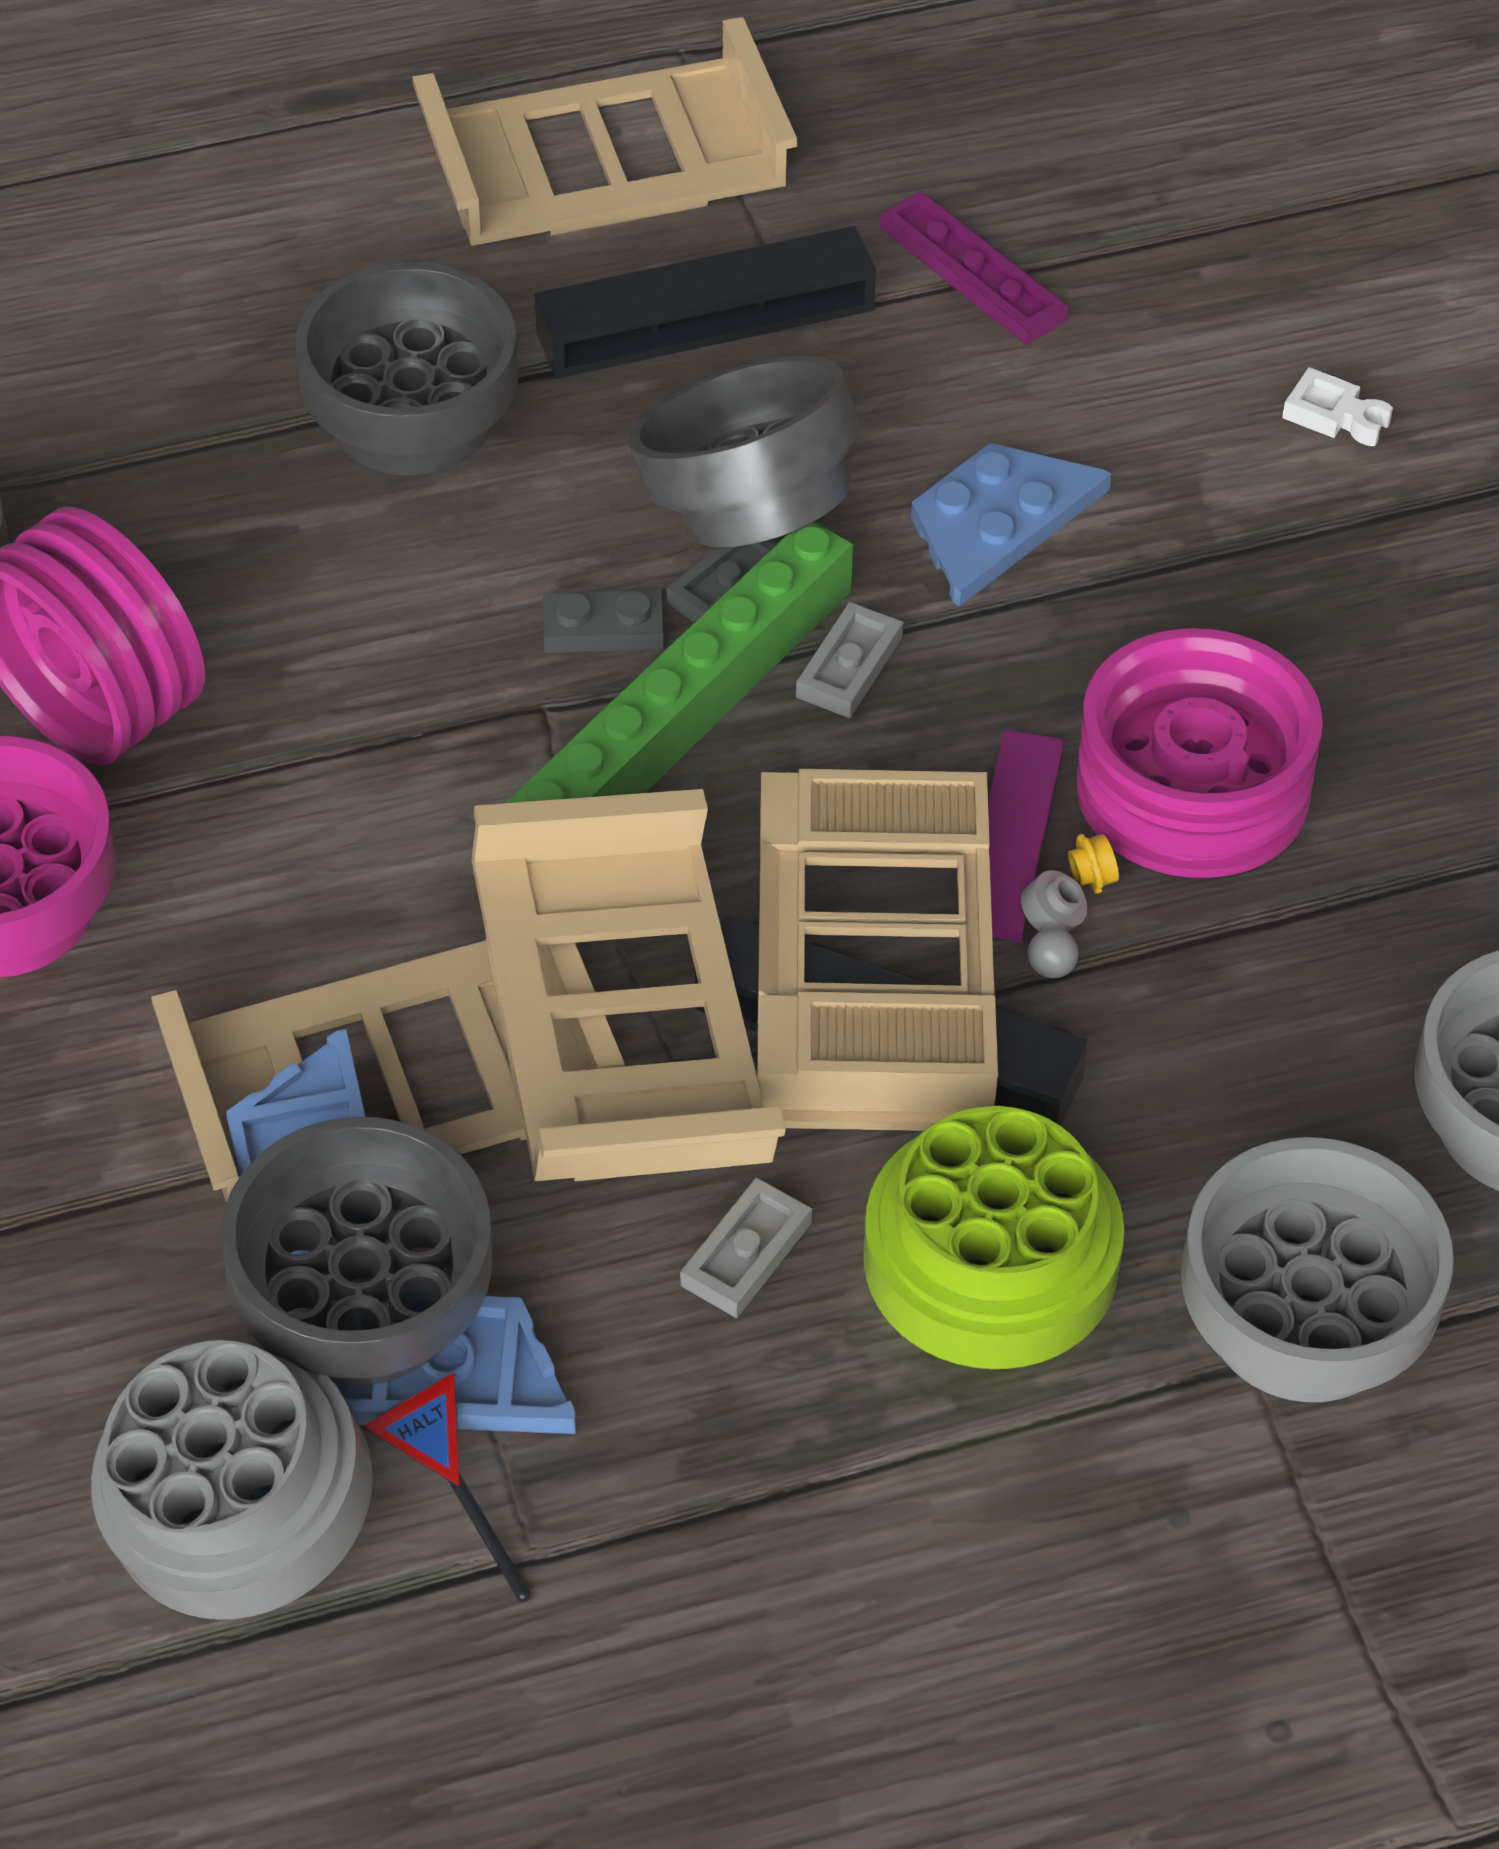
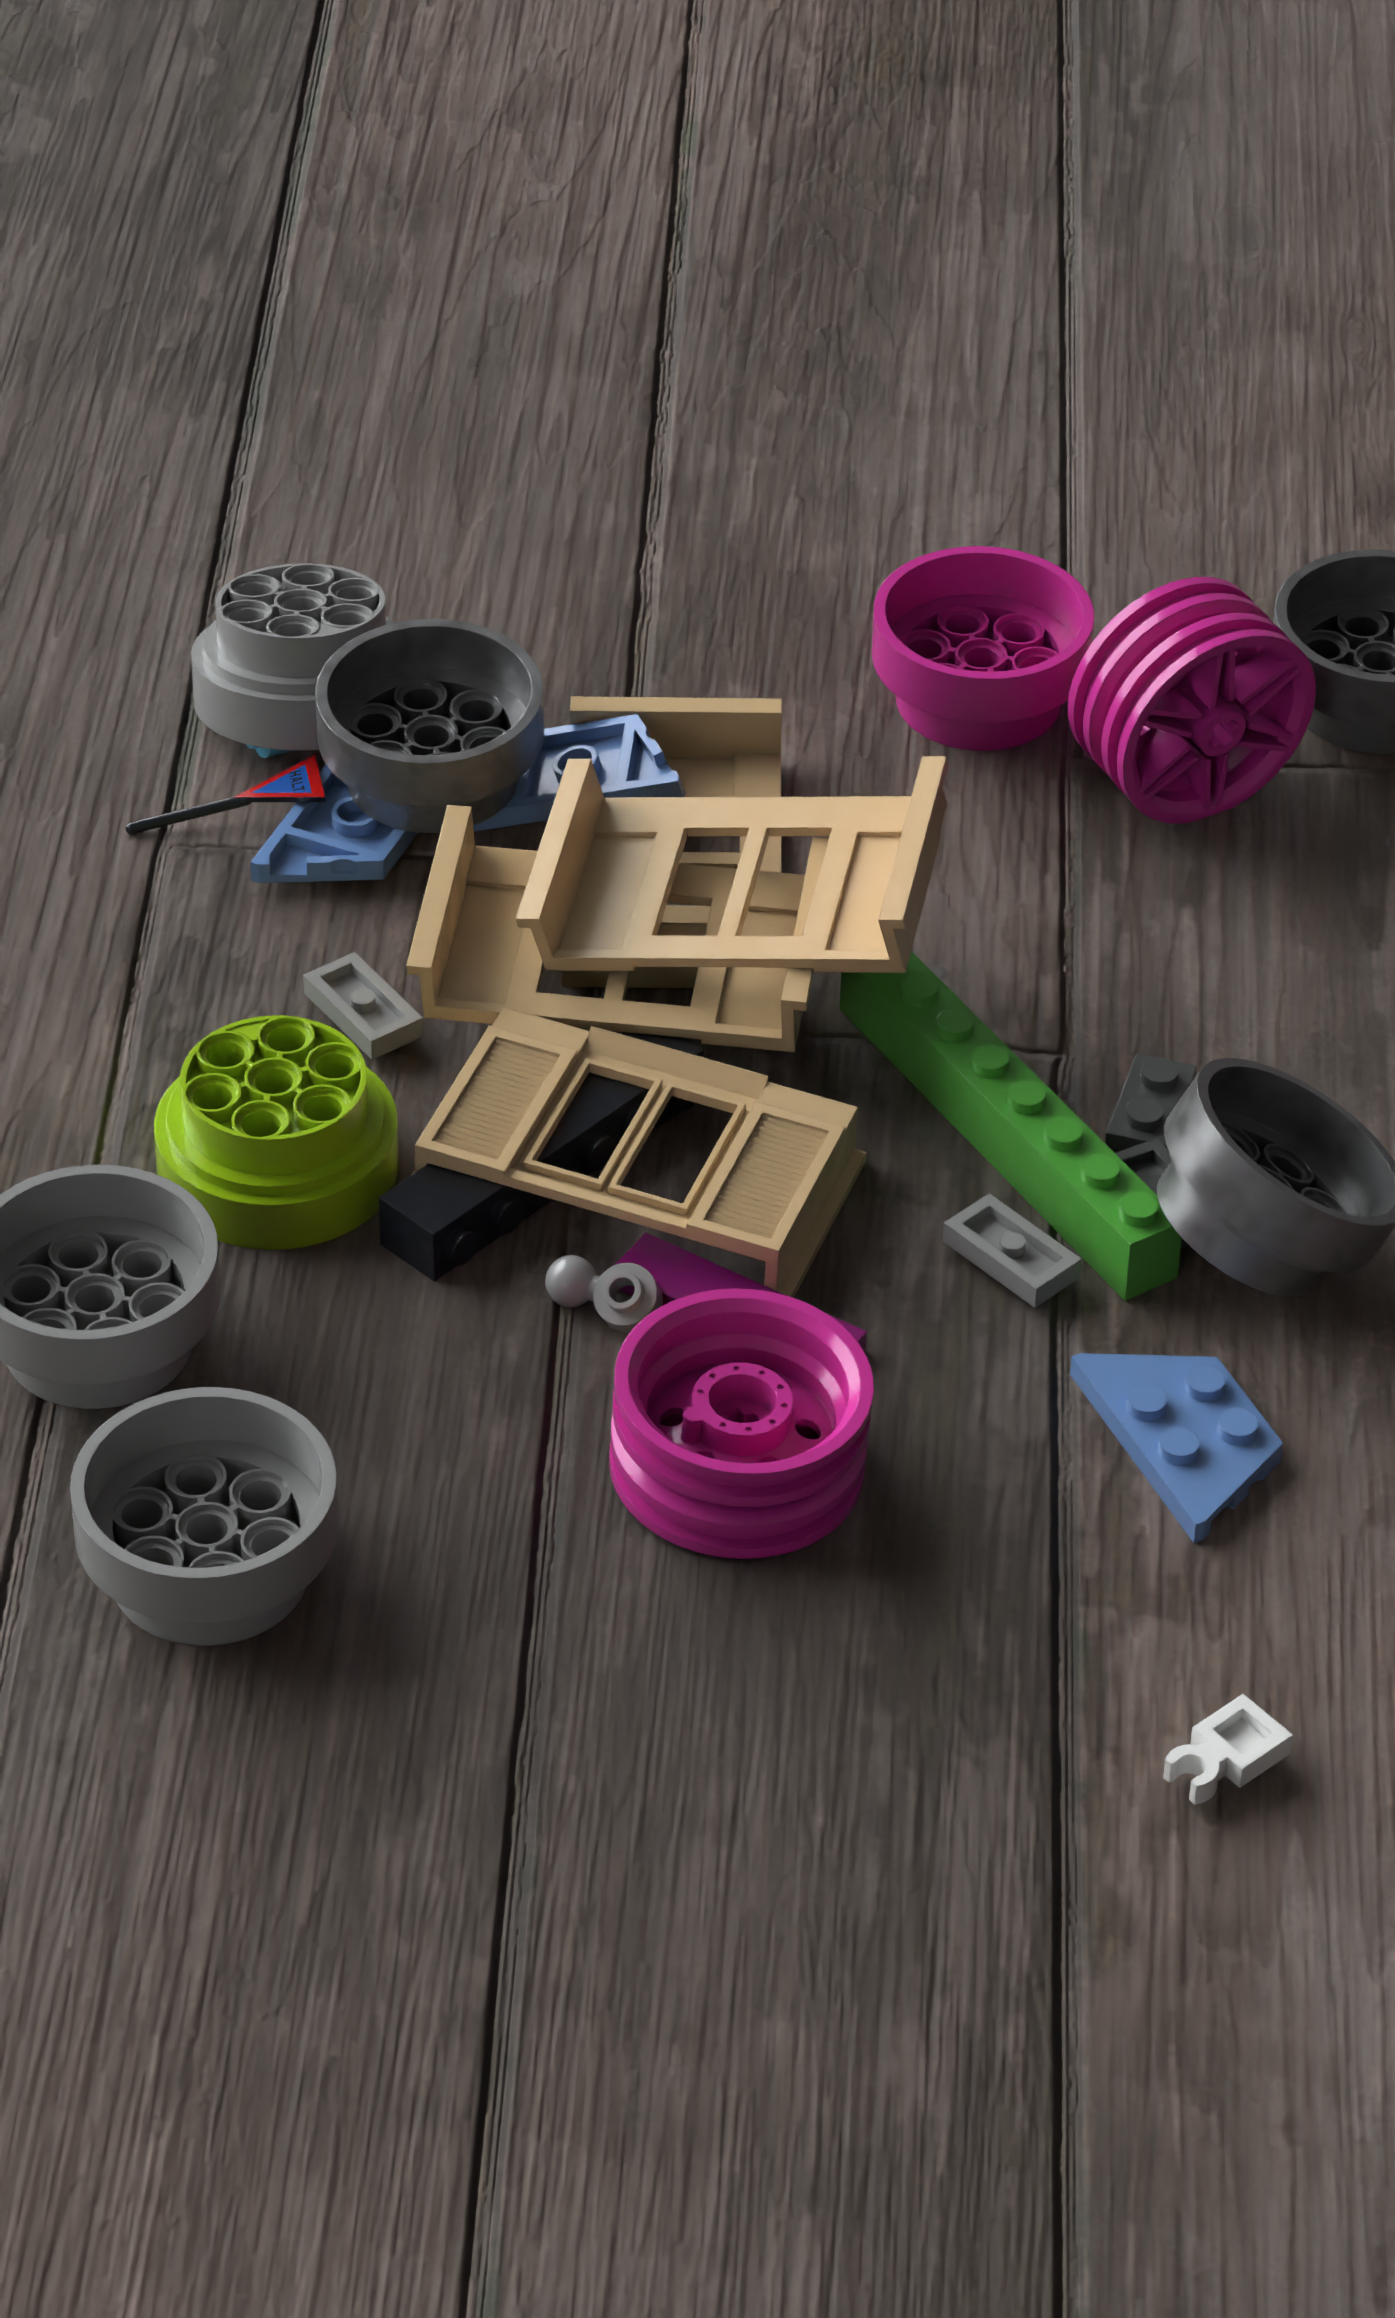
camera: 110 degrees right, 10 degrees down
(551, 738) = (613, 863): none -> tan piece

